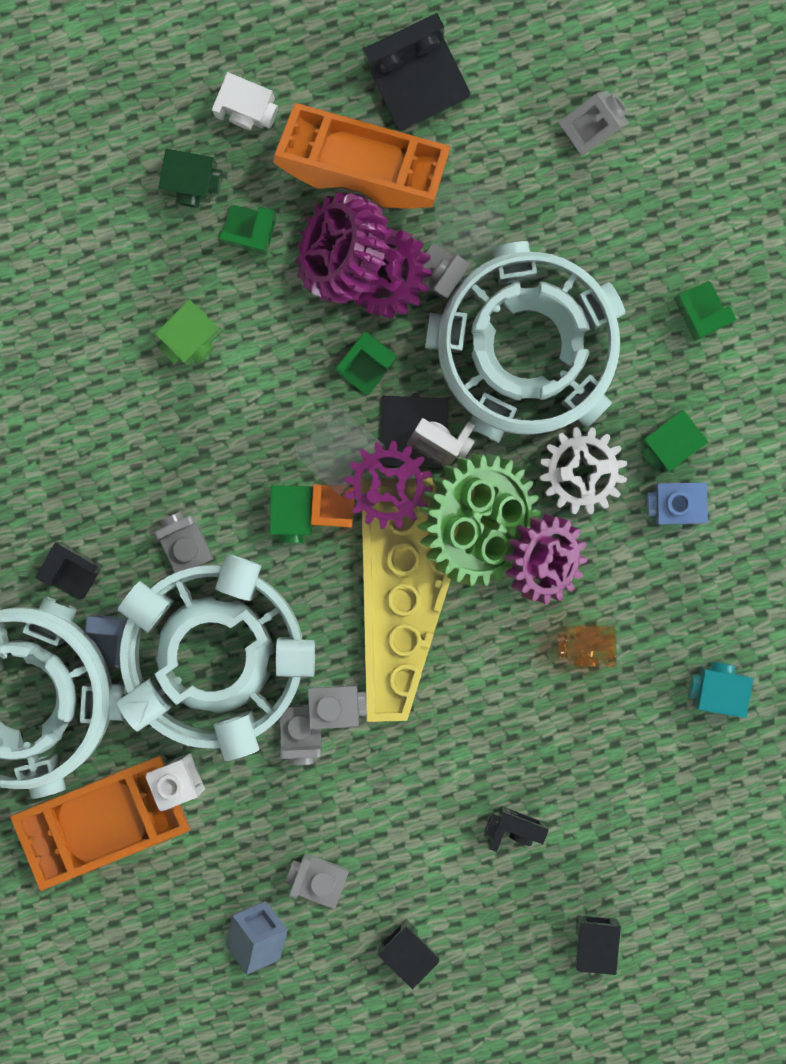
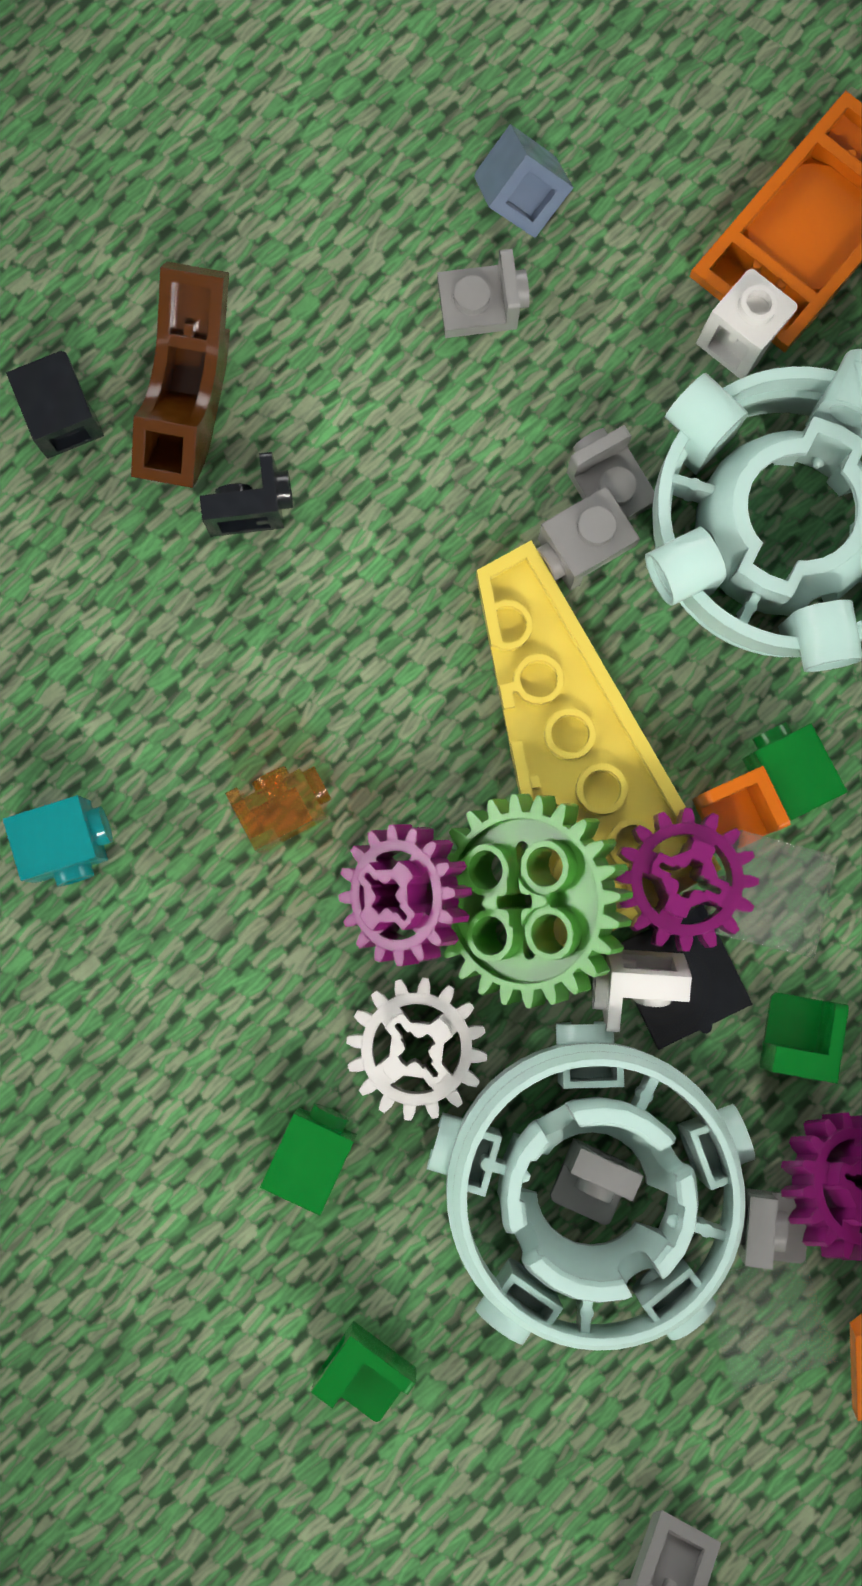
camera: 150 degrees right, 5 degrees down
(408, 954) = (308, 257): black panel -> none
(515, 918) = (187, 376): none -> reddish brown arch
(524, 346) = (594, 1182): none -> light grey bracket
(678, 503) = (256, 1074): medium blue brick -> none

